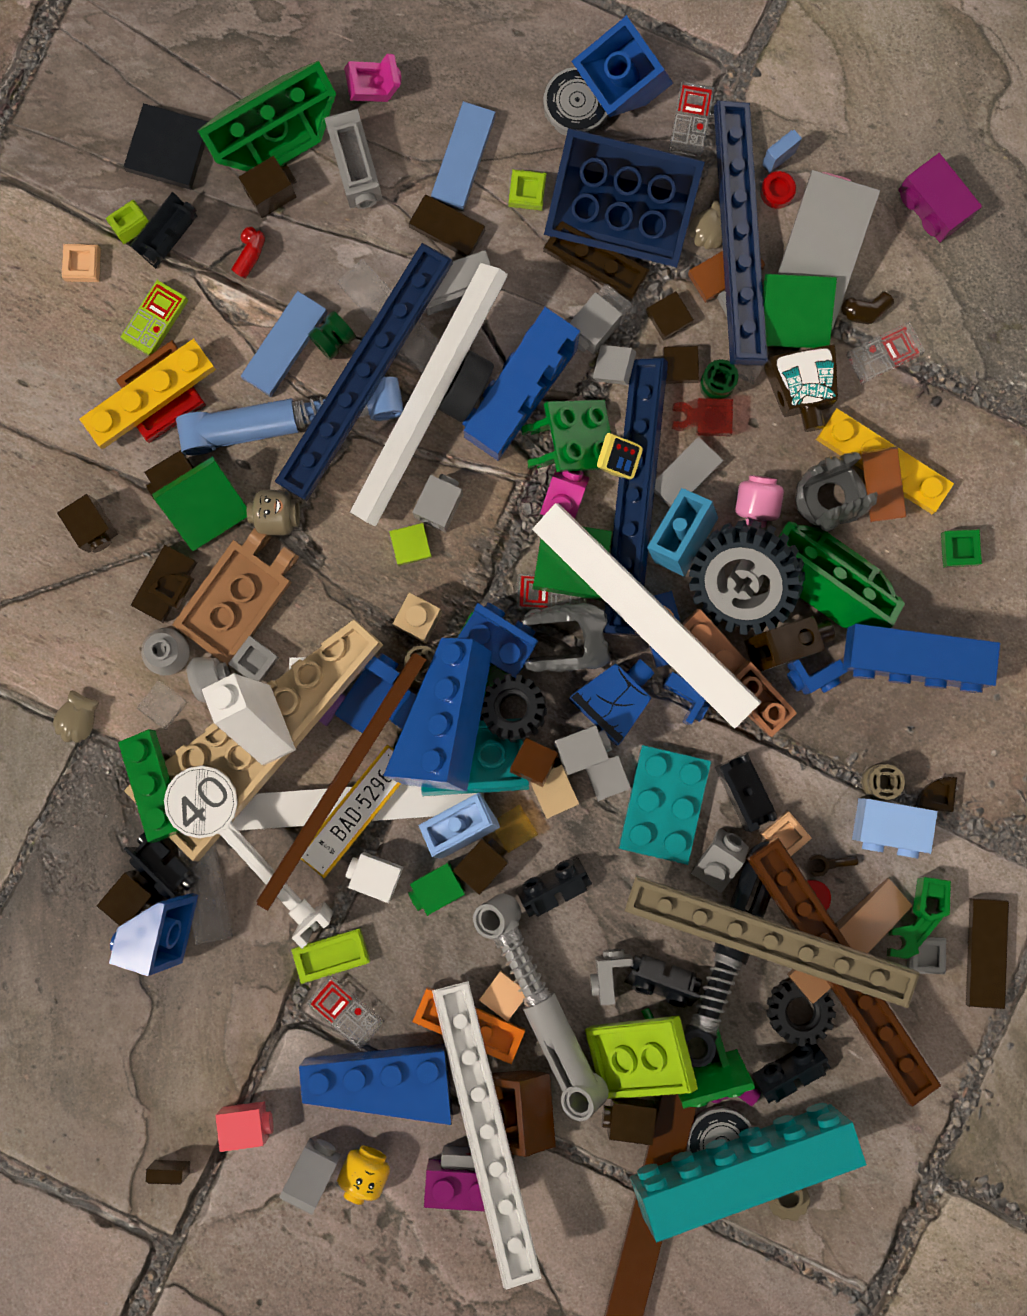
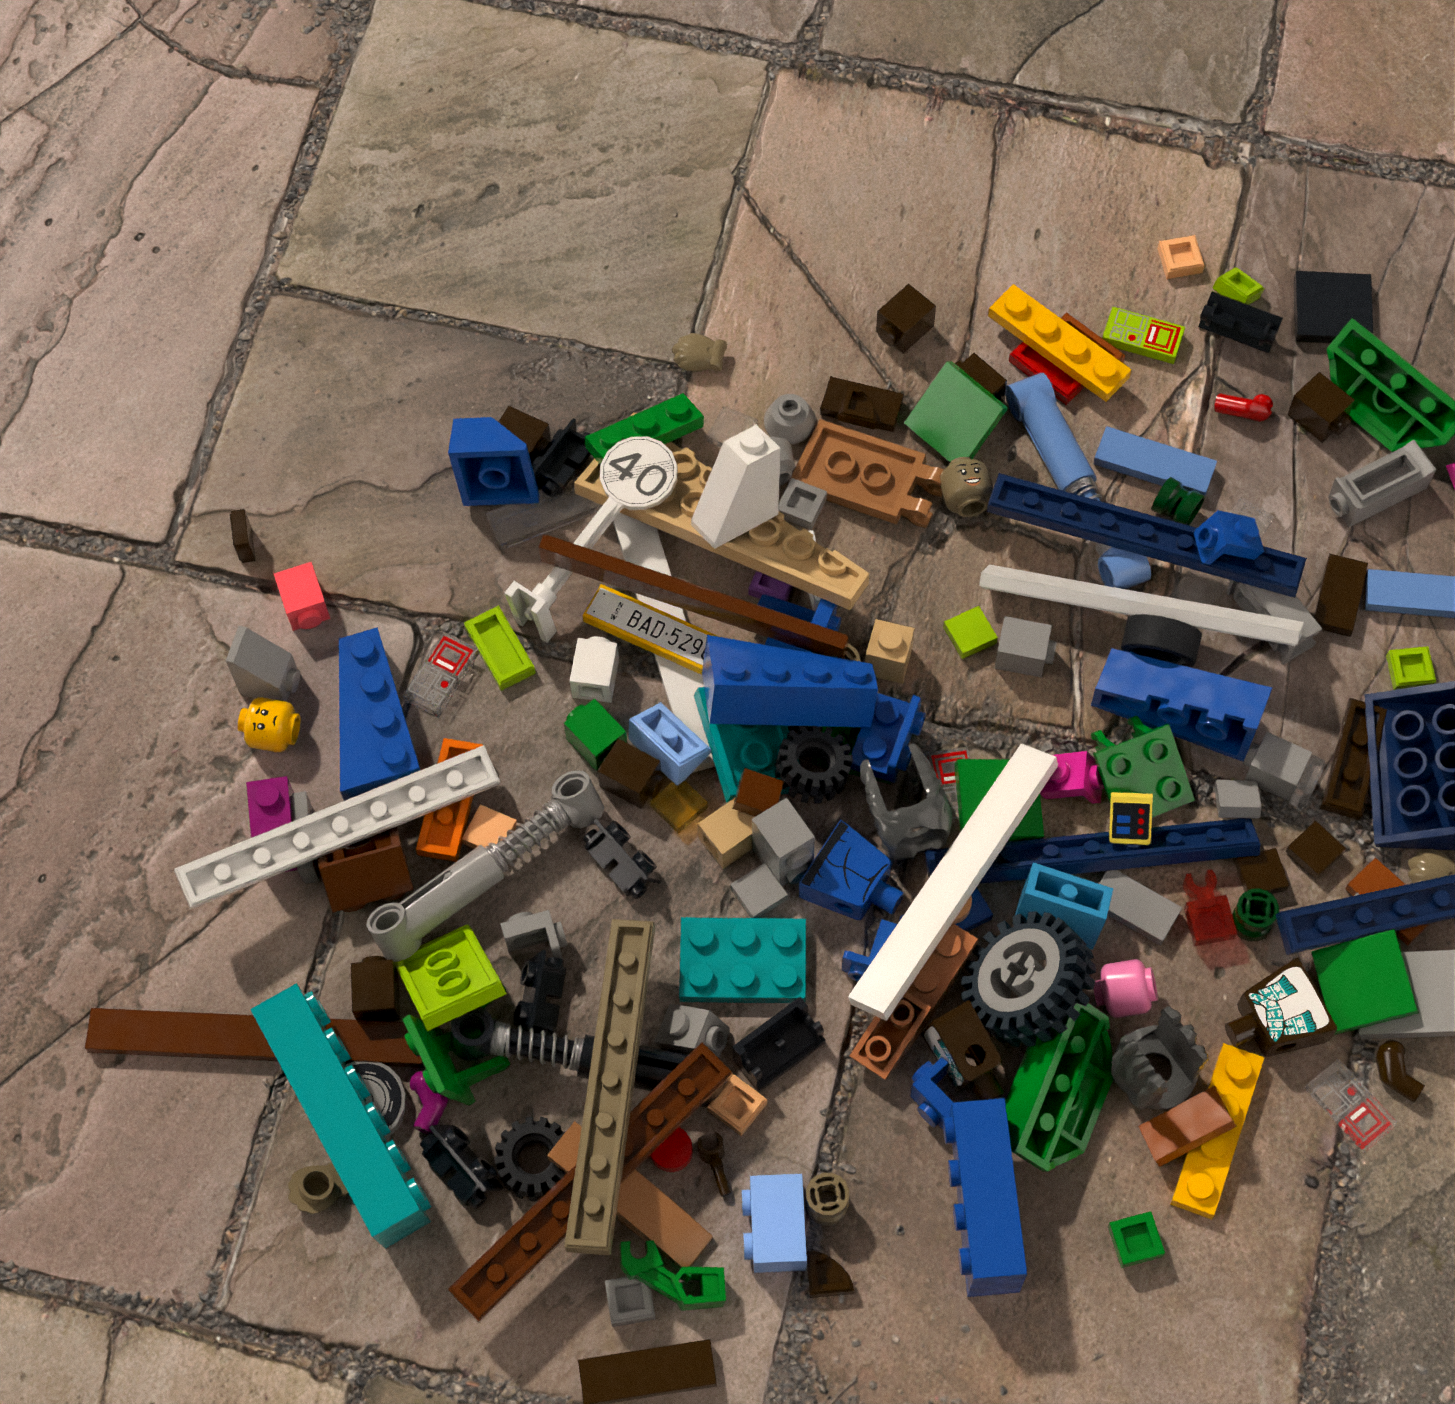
camera: 80 degrees right, 20 degrees down
(392, 302) = (1228, 535): none -> blue bracket

